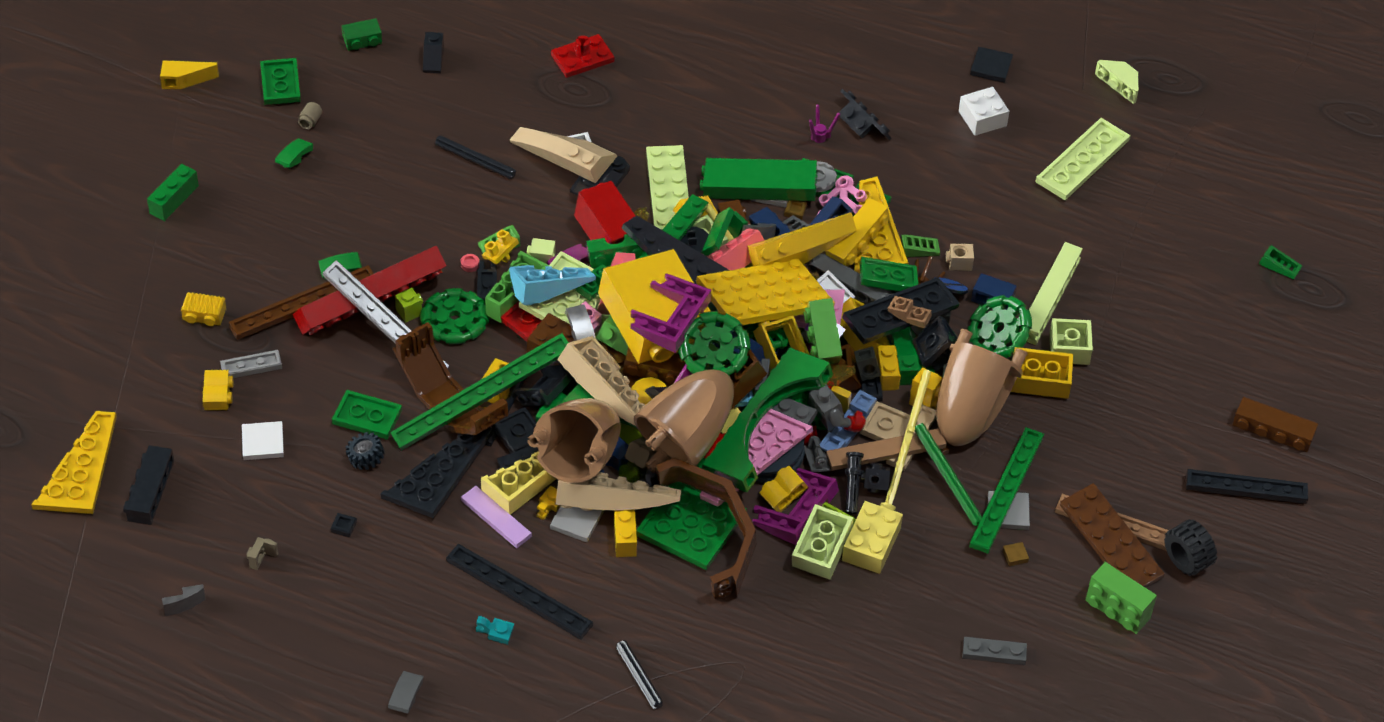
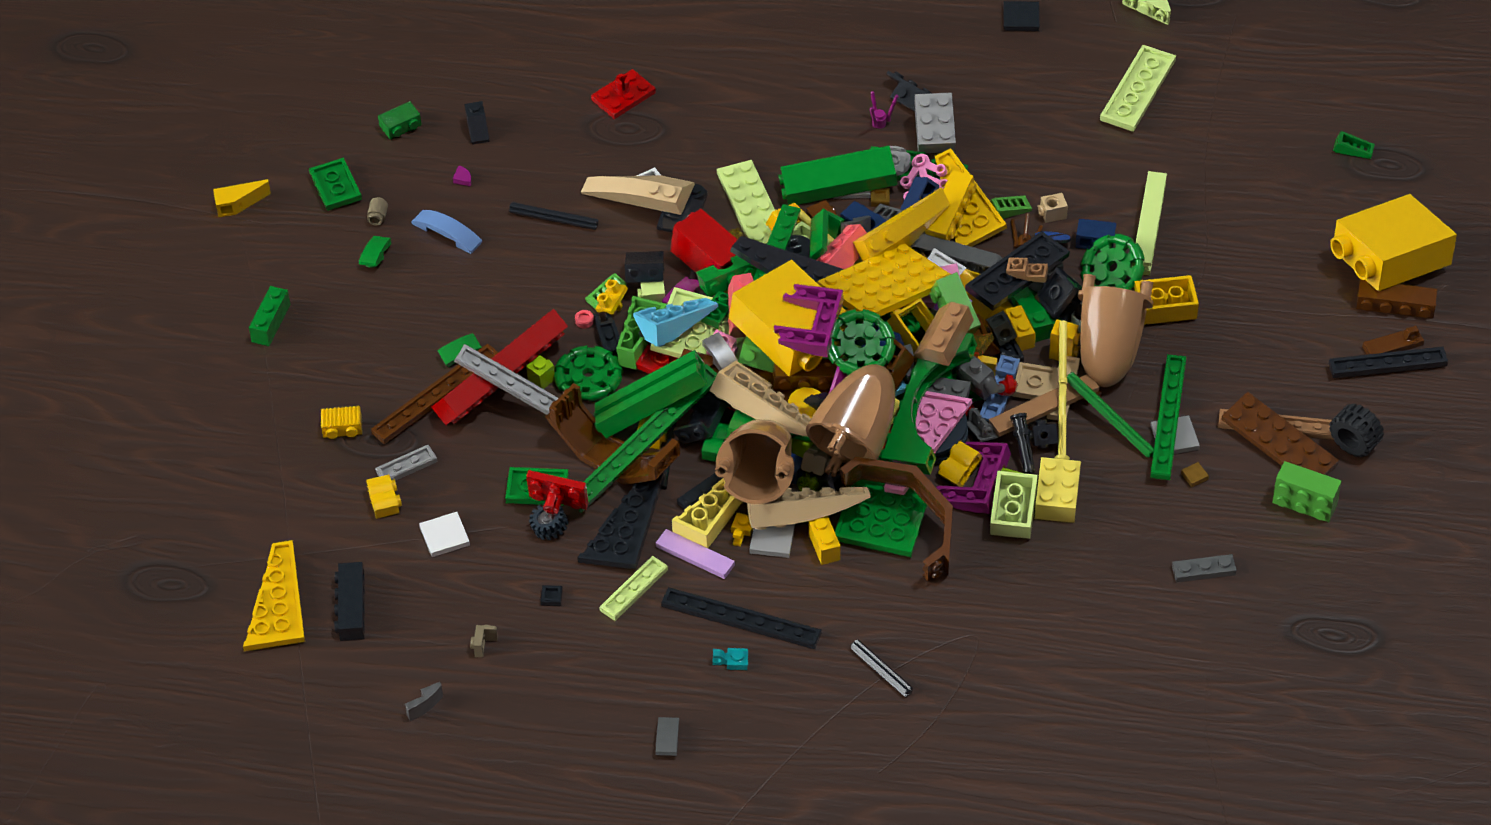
camera: 10 degrees left, 0 degrees up
(372, 147) = (448, 227): none -> medium blue slope
(379, 424) = (556, 491): none -> red plate
(402, 100) = (462, 176): none -> magenta tile
(425, 536) = (633, 588): none -> yellowish green tile
(500, 349) = (650, 394): none -> green brick
(515, 429) = (690, 468): black tile -> none
(541, 224) = (644, 266): none -> black panel
(802, 356) = (945, 334): none -> medium nougat slope
(870, 148) = (934, 122): none -> light grey brick
(887, 274) = (991, 239): green plate -> none
(983, 111) = (1029, 62): white brick -> none
(1072, 337) = (1184, 260): yellowish green brick -> none
(1260, 467) = (1398, 341): none -> reddish brown hinge
(1287, 367) = (1393, 242): none -> yellow brick

